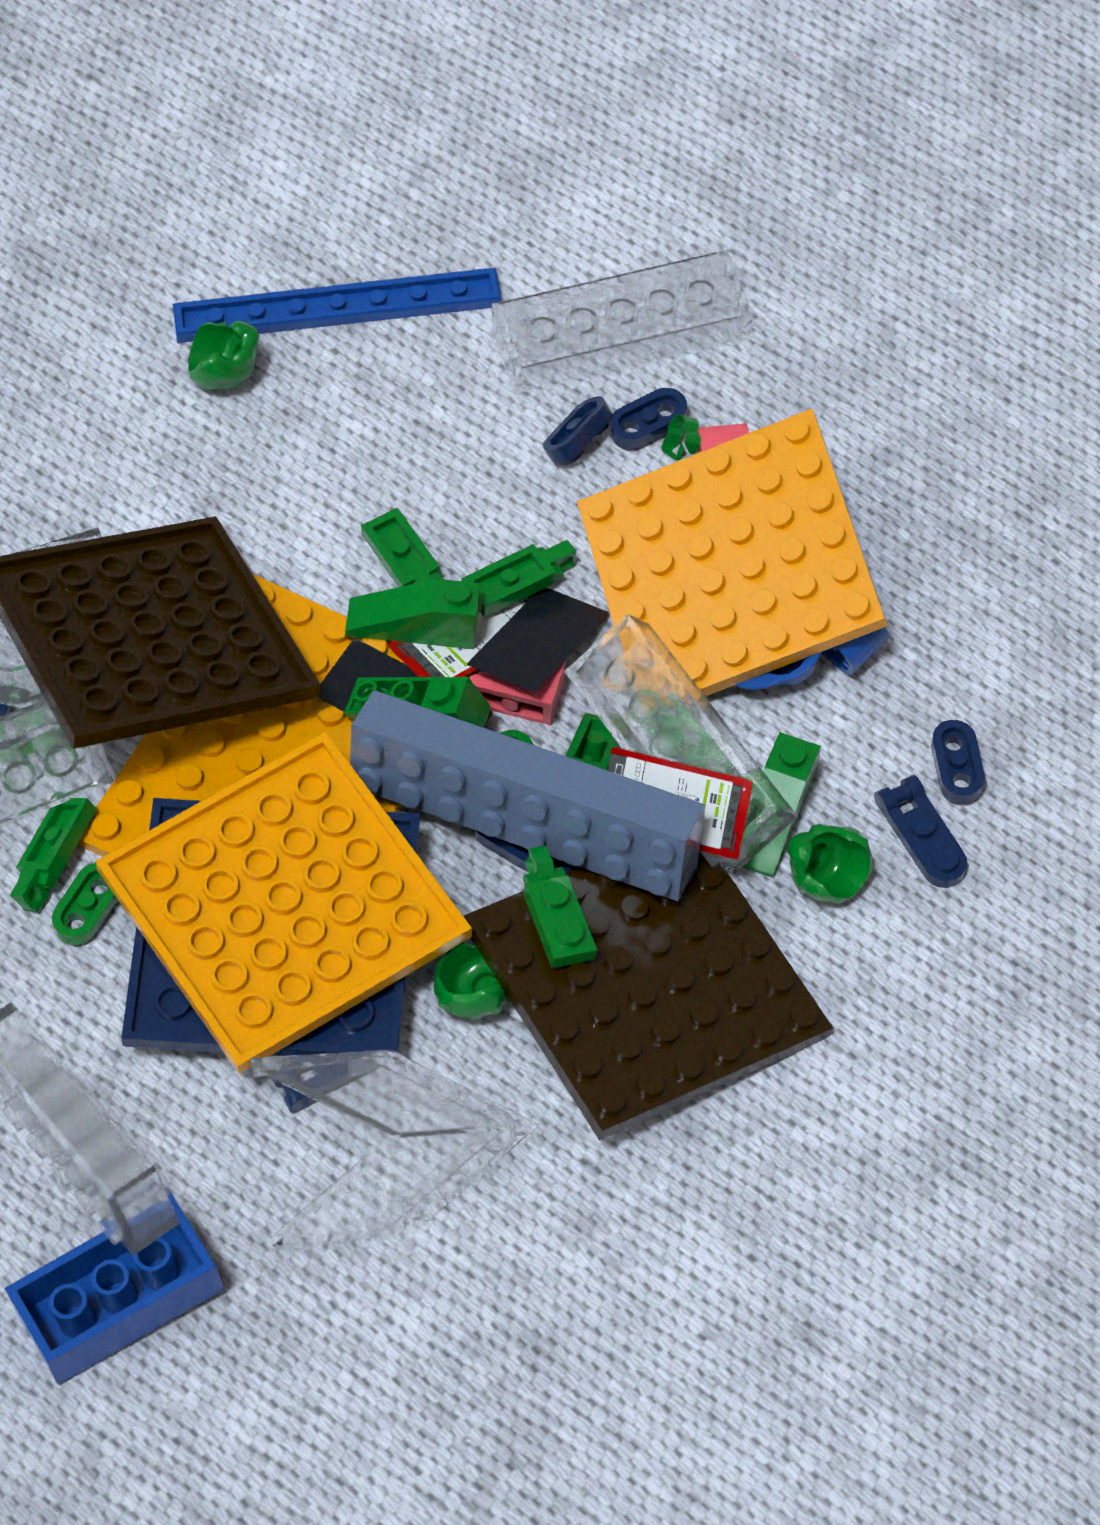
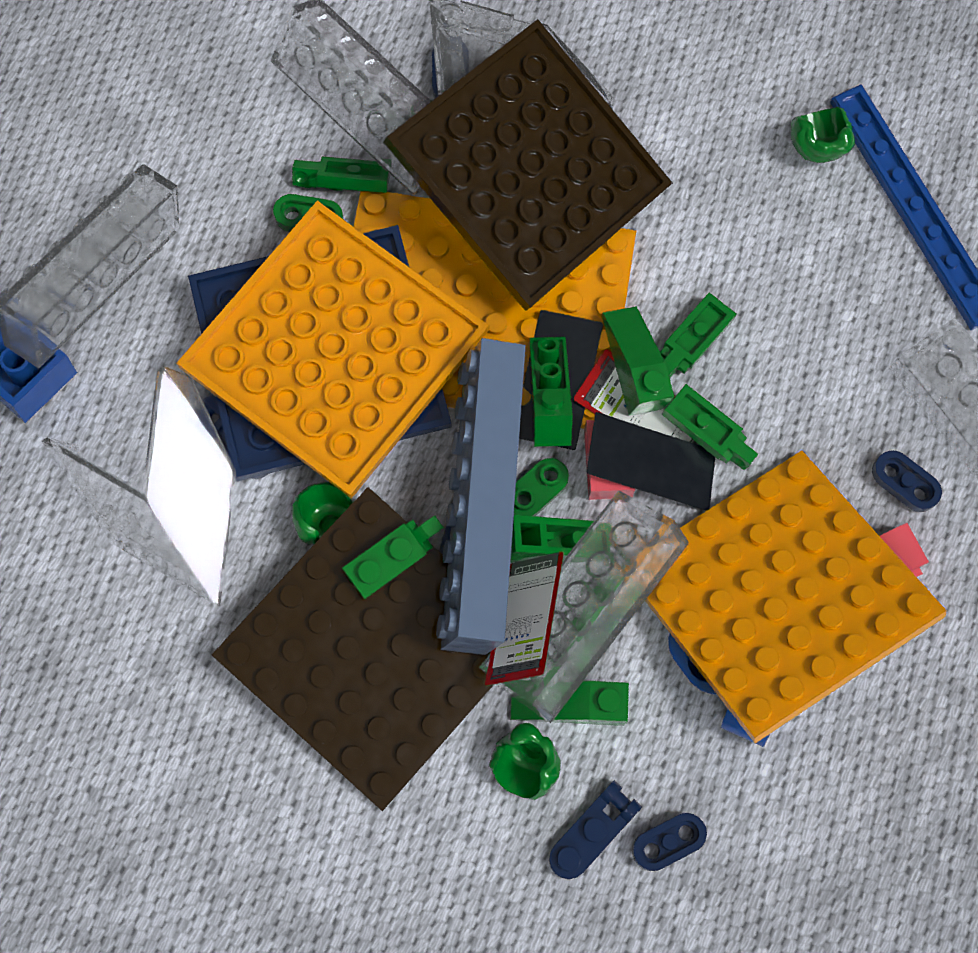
camera: 70 degrees right, 15 degrees up
(575, 432) = (869, 428): dark blue plate -> none
(675, 434) = (902, 512): green piece -> none

